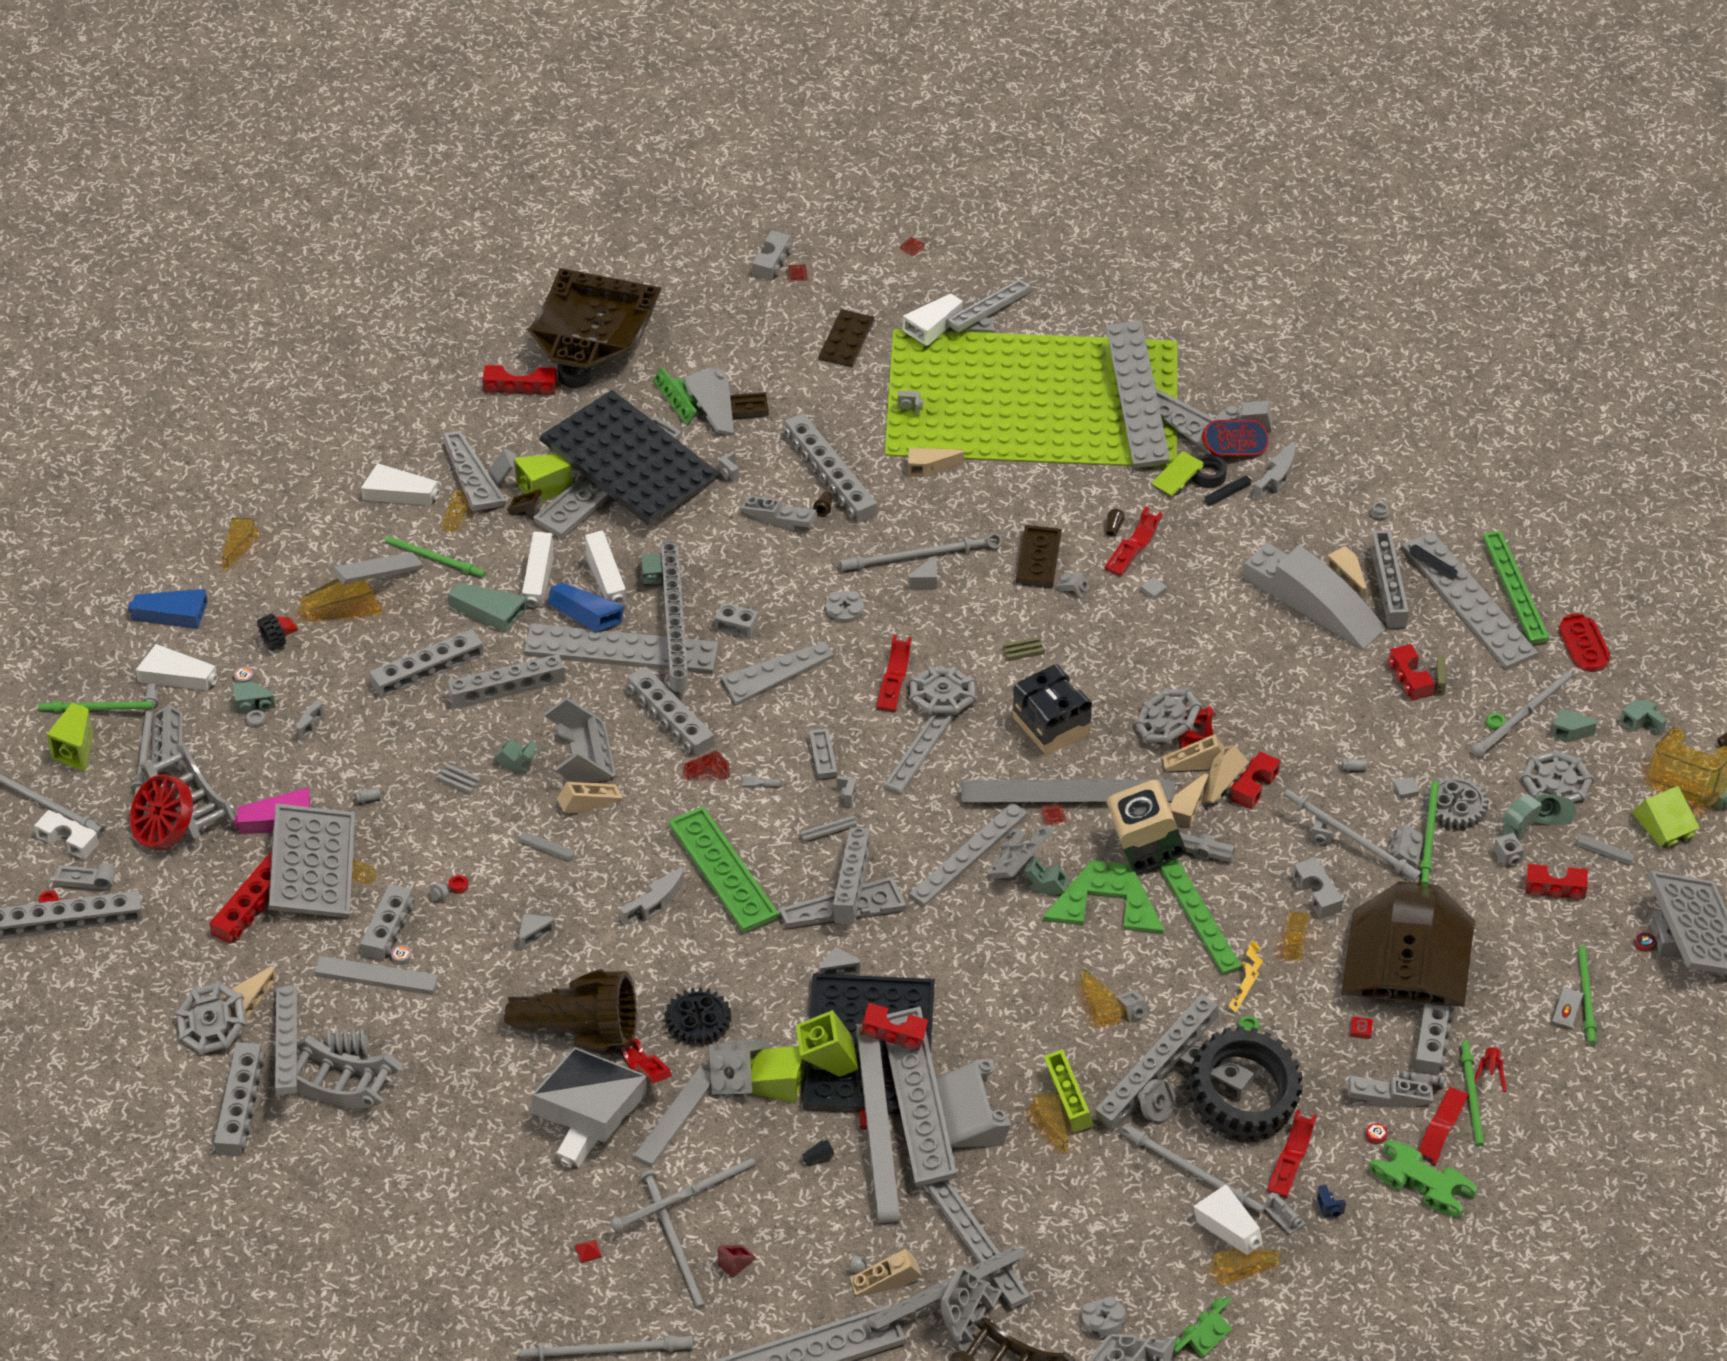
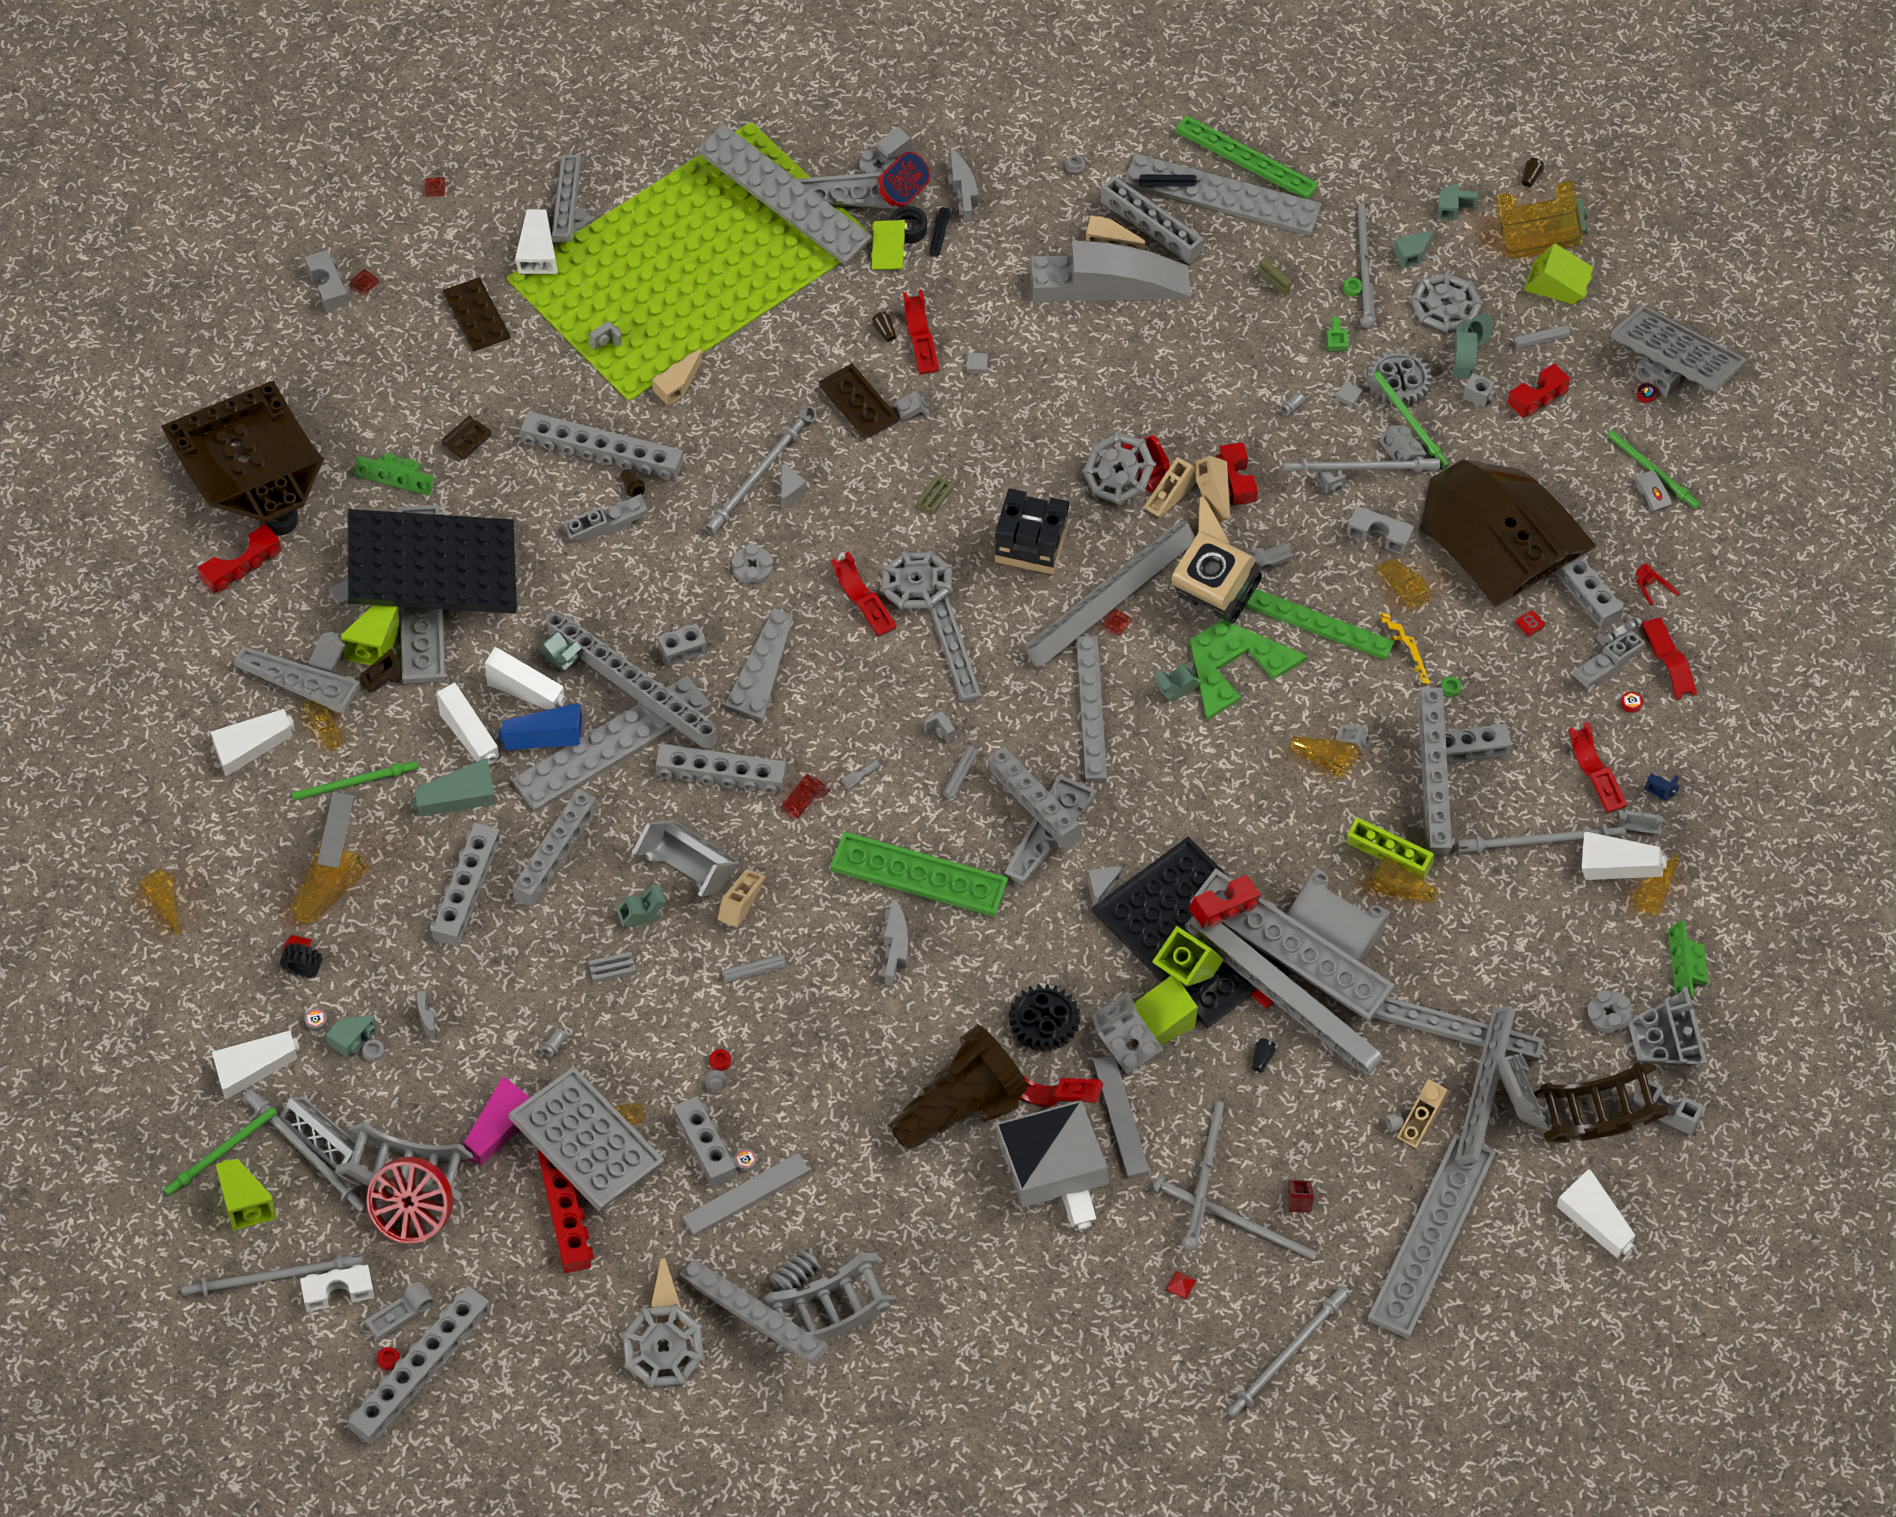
camera: 45 degrees left, 10 degrees up
(170, 608) = (178, 1008): blue slope -> none
(238, 1099) = (795, 1441): light grey brick -> none
(534, 929) = (829, 1049): light grey slope -> none
(713, 395) = (428, 448): light grey wedge -> none
(728, 467) = (516, 510): light grey bracket -> none
(823, 753) = (883, 709): light grey plate -> none
(1016, 853) = (1141, 685): light grey wing -> none
(1148, 1096) = (1460, 803): light grey plate -> none
(1261, 1050) = (1538, 712): black tyre -> none
(1415, 684) = (1264, 299): red arch -> none
(1435, 1185) = (1689, 714): bright green piece -> none
(1441, 745) = (1336, 338): none -> bright green plate
(1468, 1061) = (1631, 590): bright green bar -> none
(1584, 642) = (1343, 169): red tile -> none

